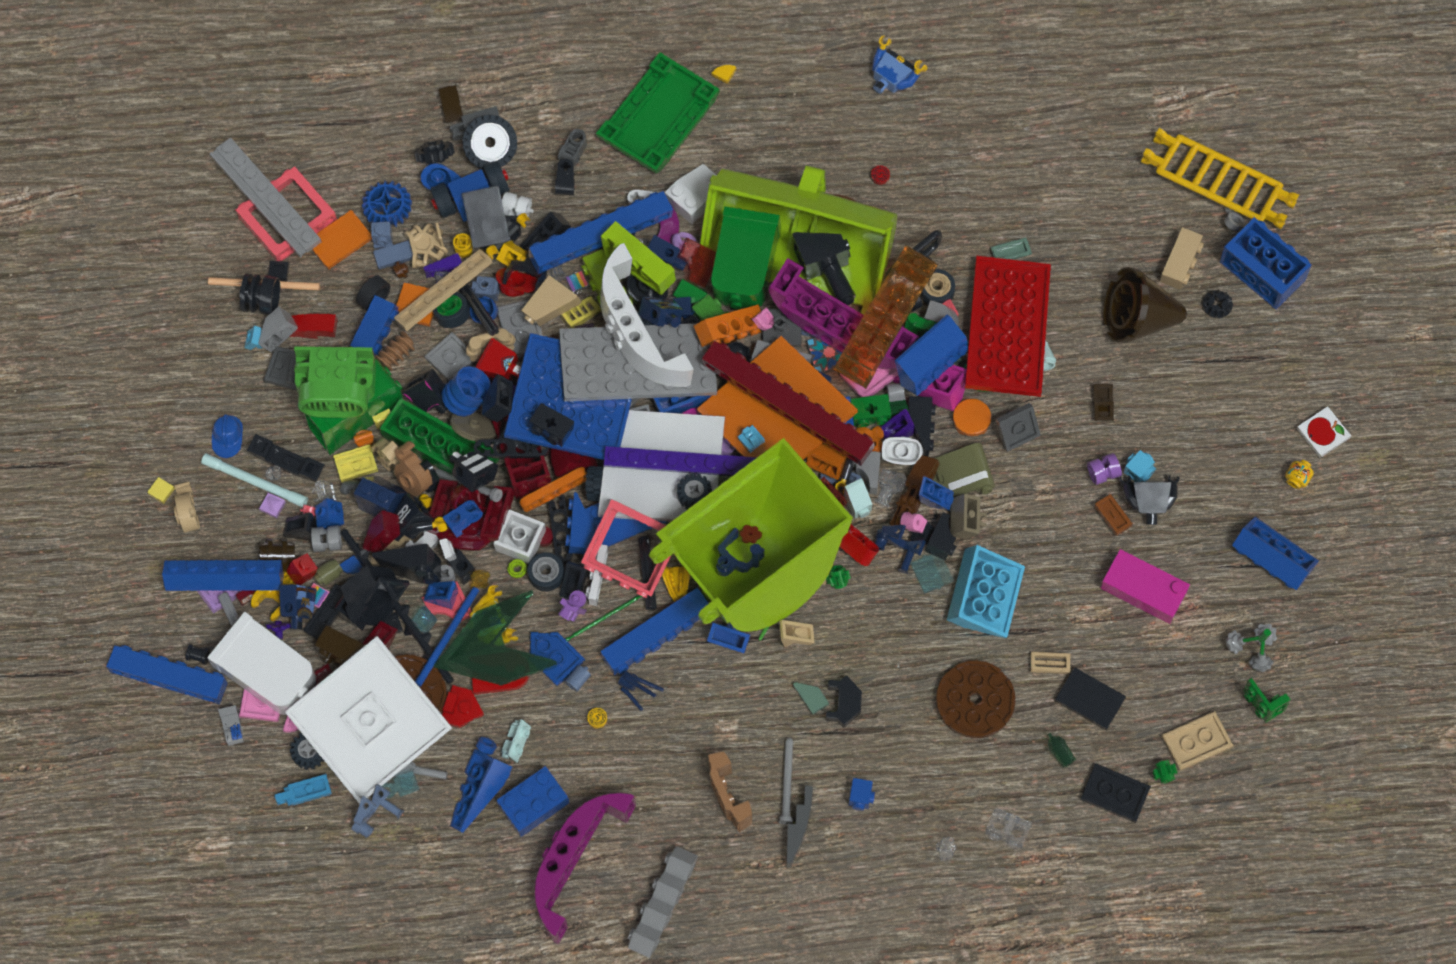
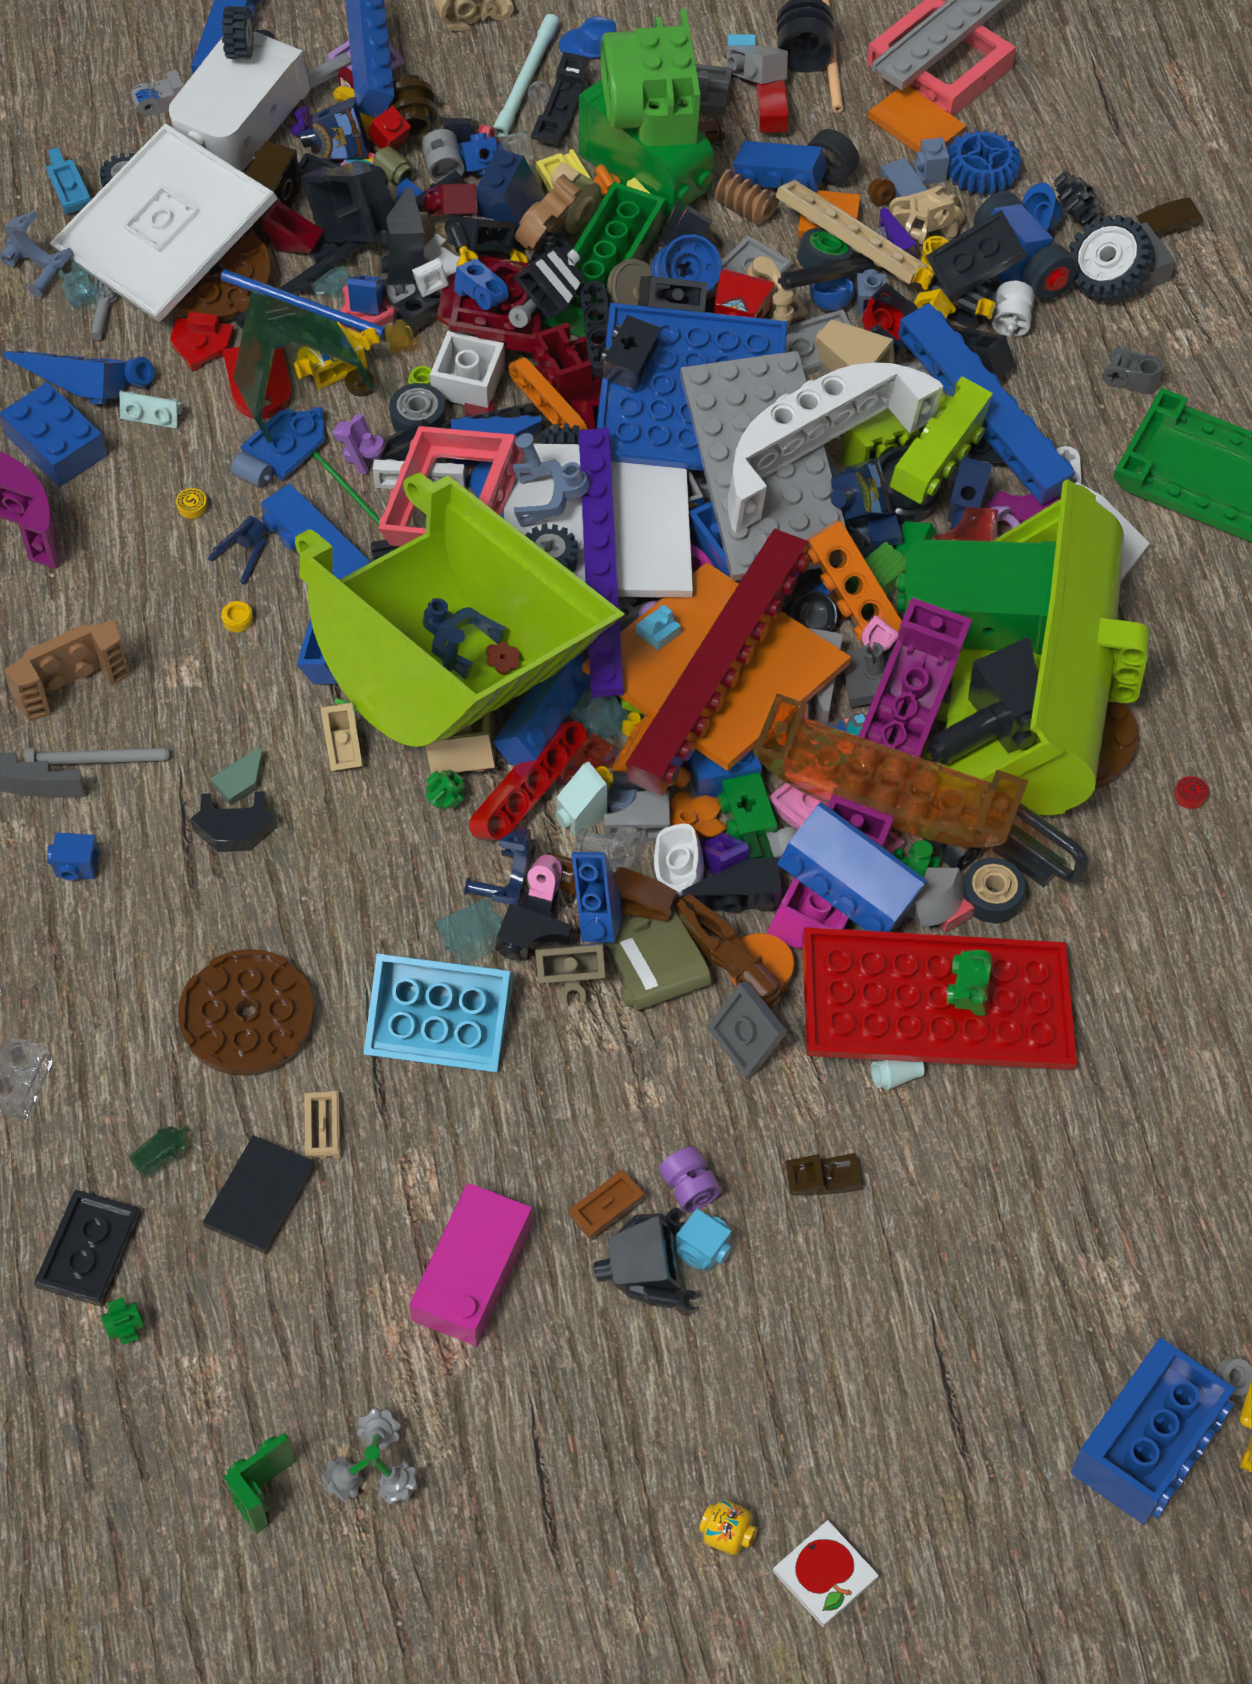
camera: 80 degrees right, 10 degrees down
(232, 648) = (237, 32): none -> black wheel
(272, 505) = (491, 99): lavender tile -> none
(279, 269) = (853, 63): black tile -> none
(565, 179) = (1075, 367): black piece -> none
(646, 477) = (568, 482): none -> sand blue piece
(690, 694) = (237, 616): none -> yellow tile
(969, 429) = (728, 952): none -> reddish brown arm
(1005, 303) = (972, 980): none -> green piece
(1012, 250) = (1093, 1003): sand green tile -> none
(1138, 307) = (1011, 1216): dark brown cone -> none
(1182, 259) = (1135, 1286): tan brick -> none
(1197, 741) = (189, 1379): tan tile -> none
(1214, 310) = (1055, 1375): black gear -> none
(1275, 553) = (562, 1492): blue slope -> none

